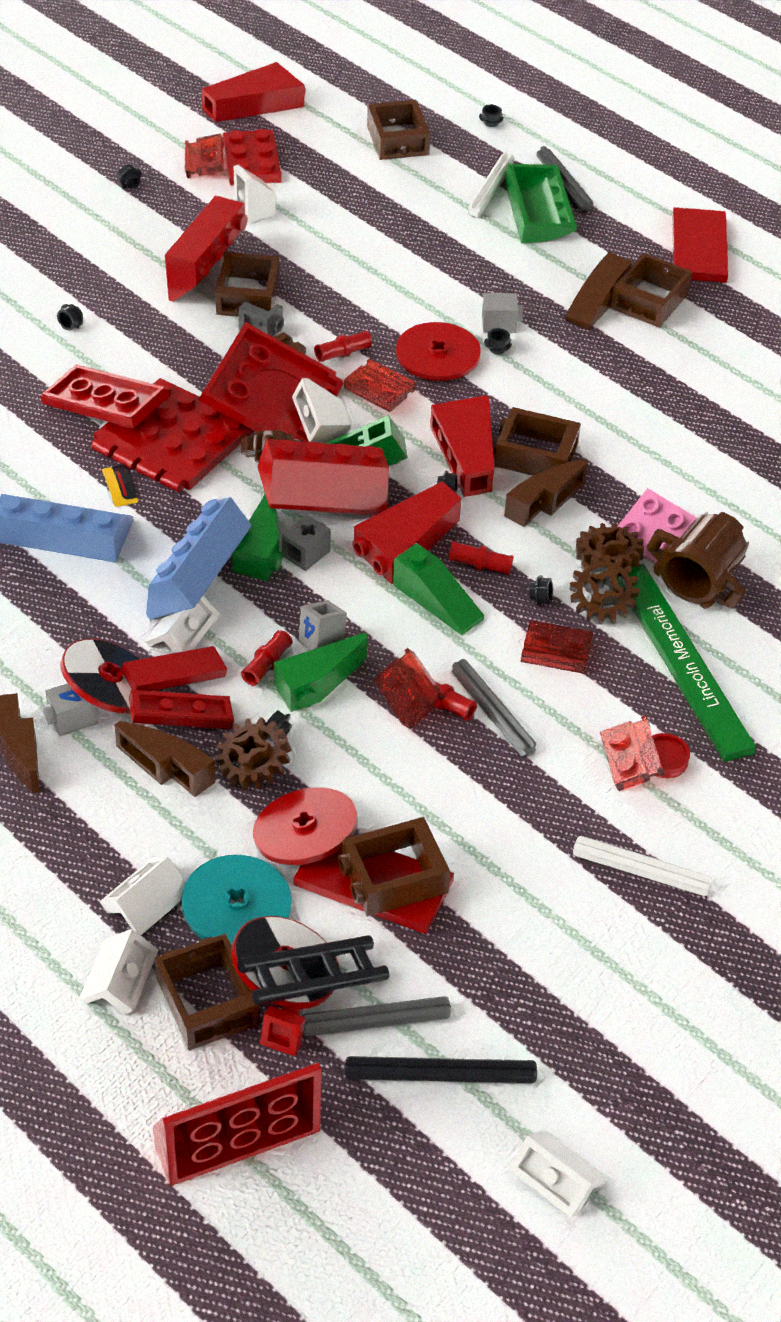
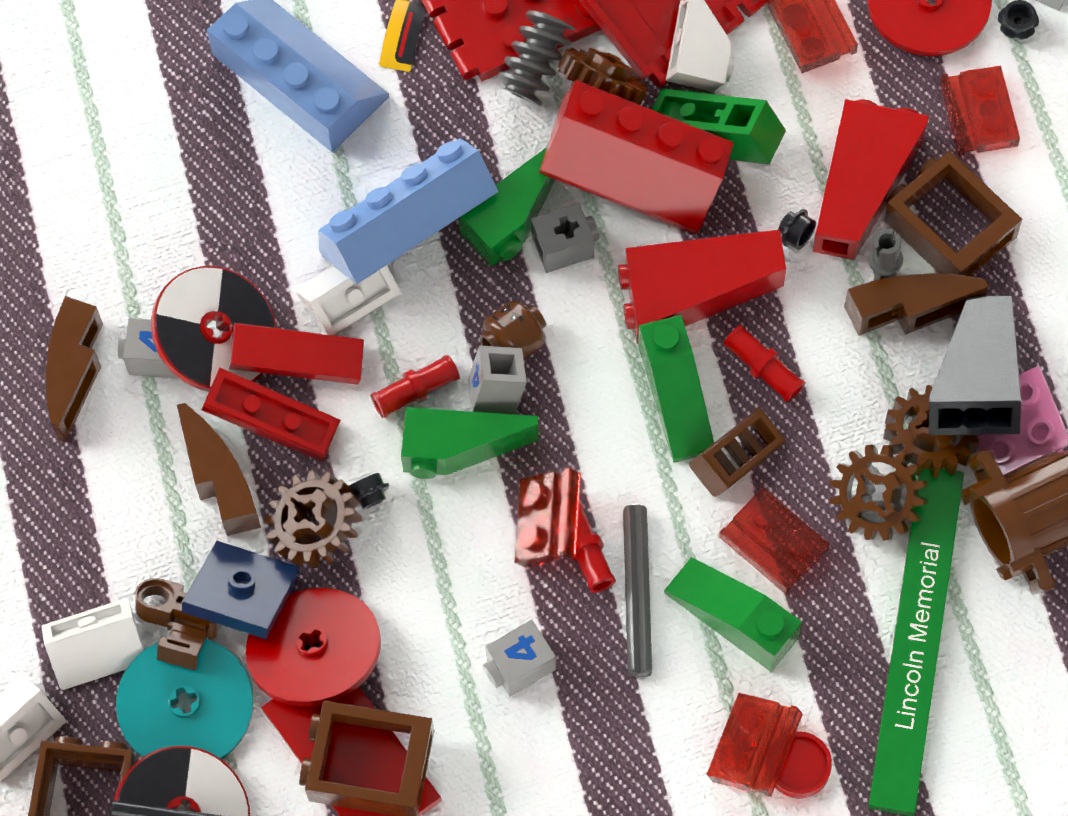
camera: 35 degrees right, 20 degrees up
(210, 847) = (186, 632): none -> reddish brown piece
(221, 453) = (534, 56): none -> dark grey piece
(232, 814) = (240, 589): none -> plate
(308, 592) = (515, 327): none -> reddish brown head
(448, 772) = (519, 659): none -> light grey brick
(497, 612) = (716, 469): none -> reddish brown slope
(509, 390) = (980, 110): none -> clear red plate
(517, 470) = (886, 255): none -> dark grey axle
(541, 590) = (807, 450): black plate -> none
(568, 689) = (736, 612): none -> green slope
(622, 498) = (979, 374): none -> slope

